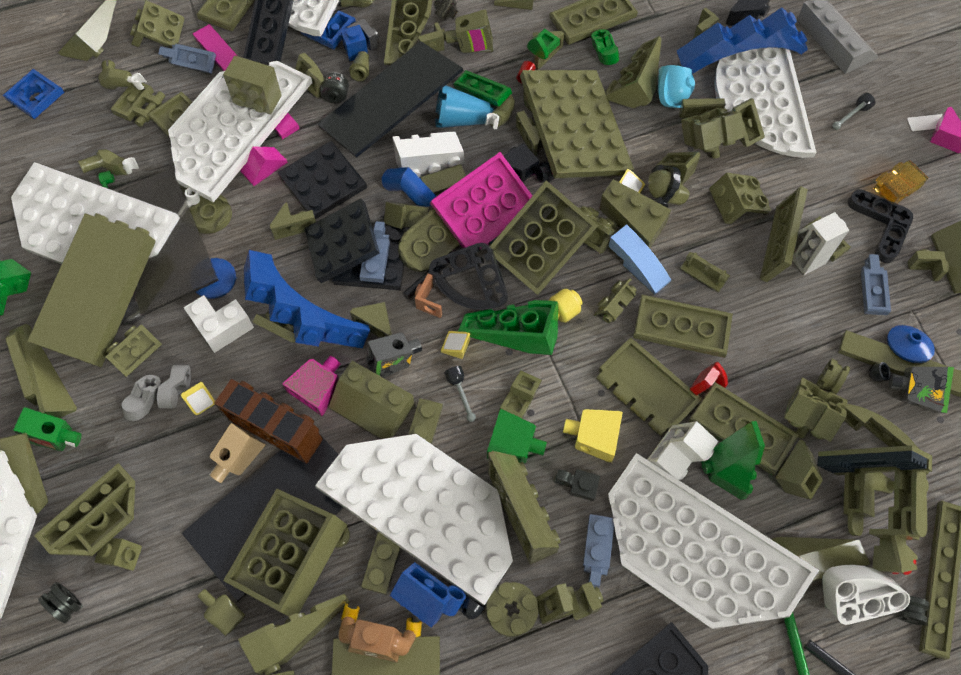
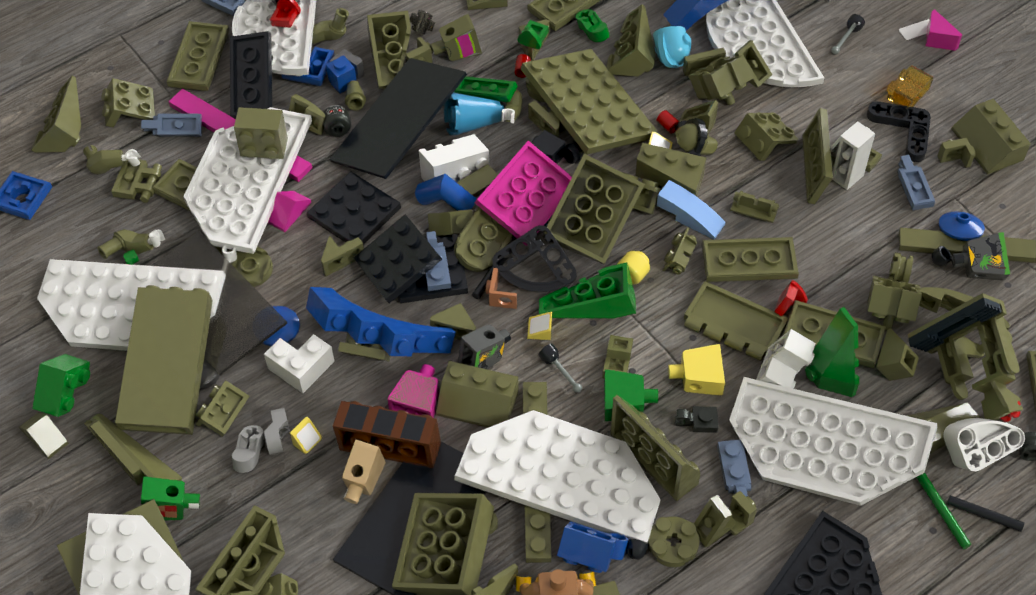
camera: 15 degrees left, 10 degrees down
(647, 161) = (667, 121): none -> red hinge

